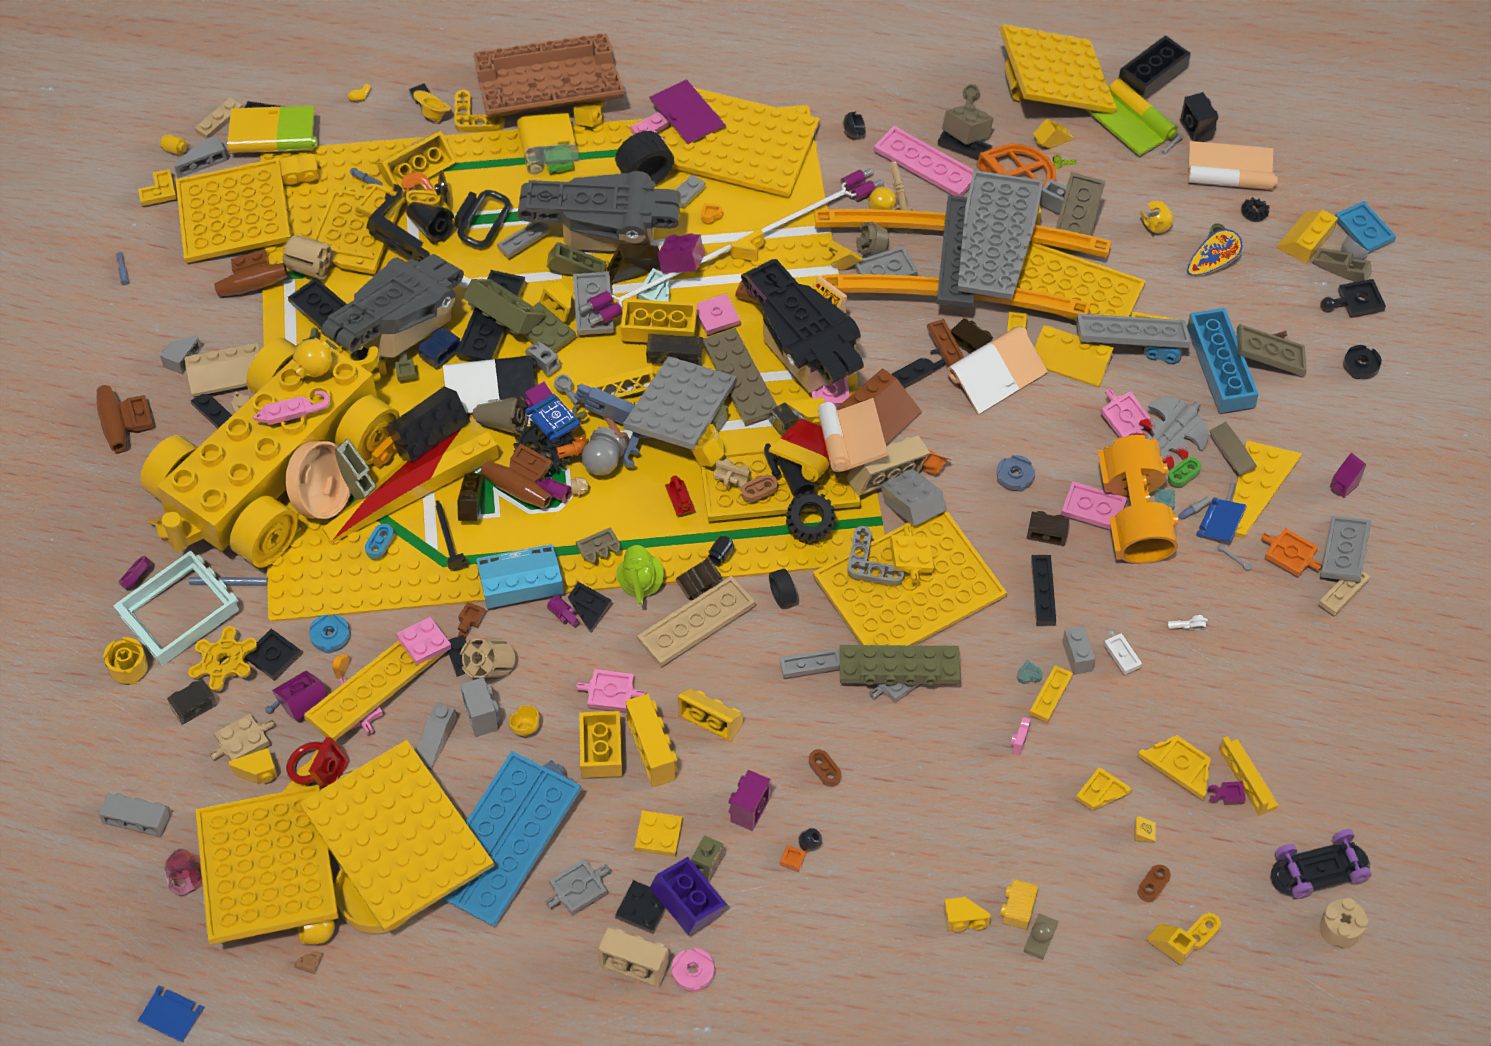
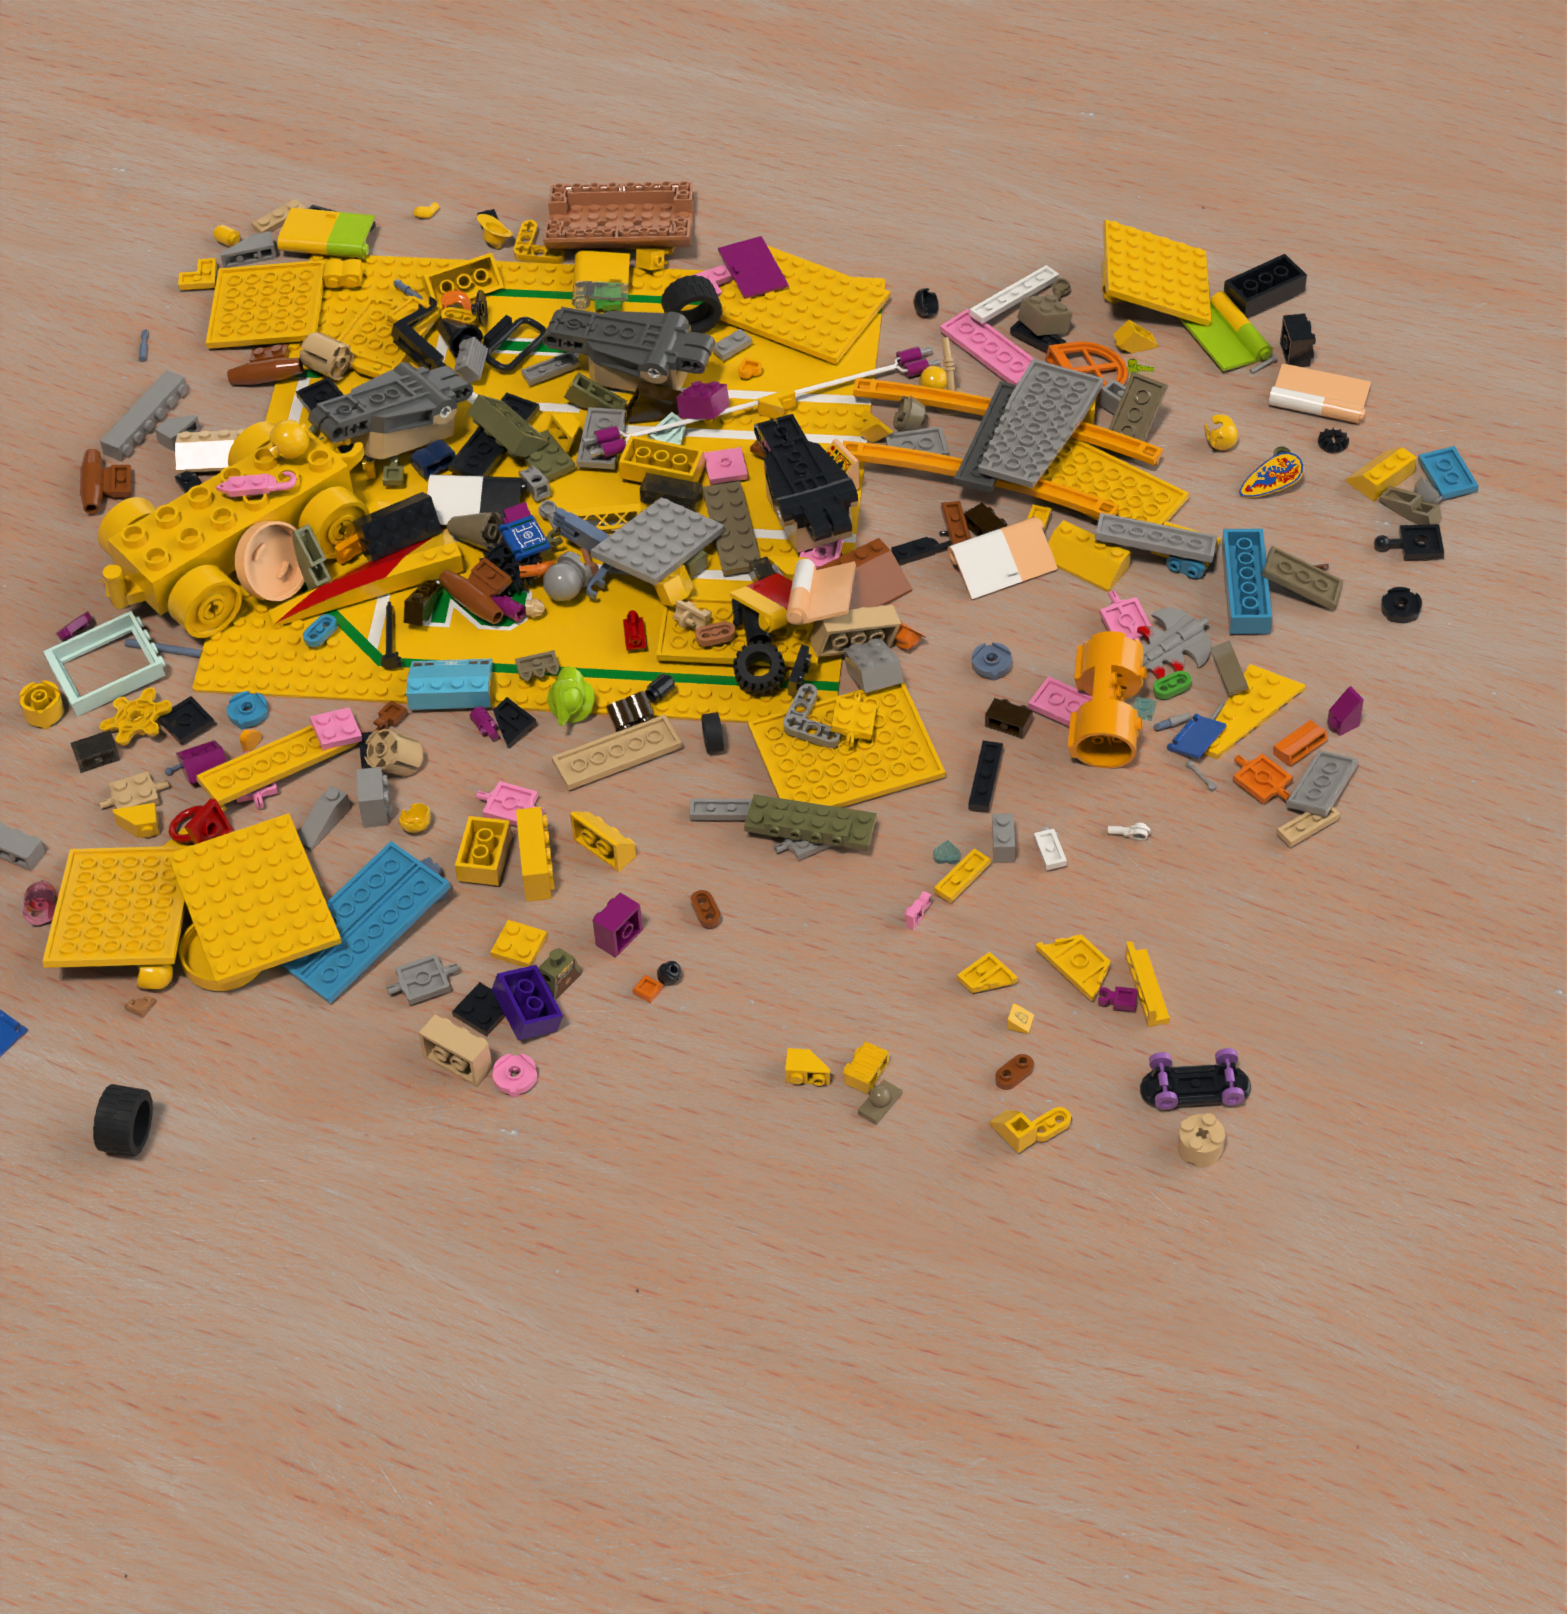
camera: 15 degrees right, 5 degrees down
(143, 342) = (144, 415): none -> light grey brick
(449, 241) = (471, 359): none -> light grey brick
(849, 520) = (800, 667): none -> black plate
(932, 106) = (1013, 294): none -> white plate
(1314, 511) = (1300, 743): none -> orange piece

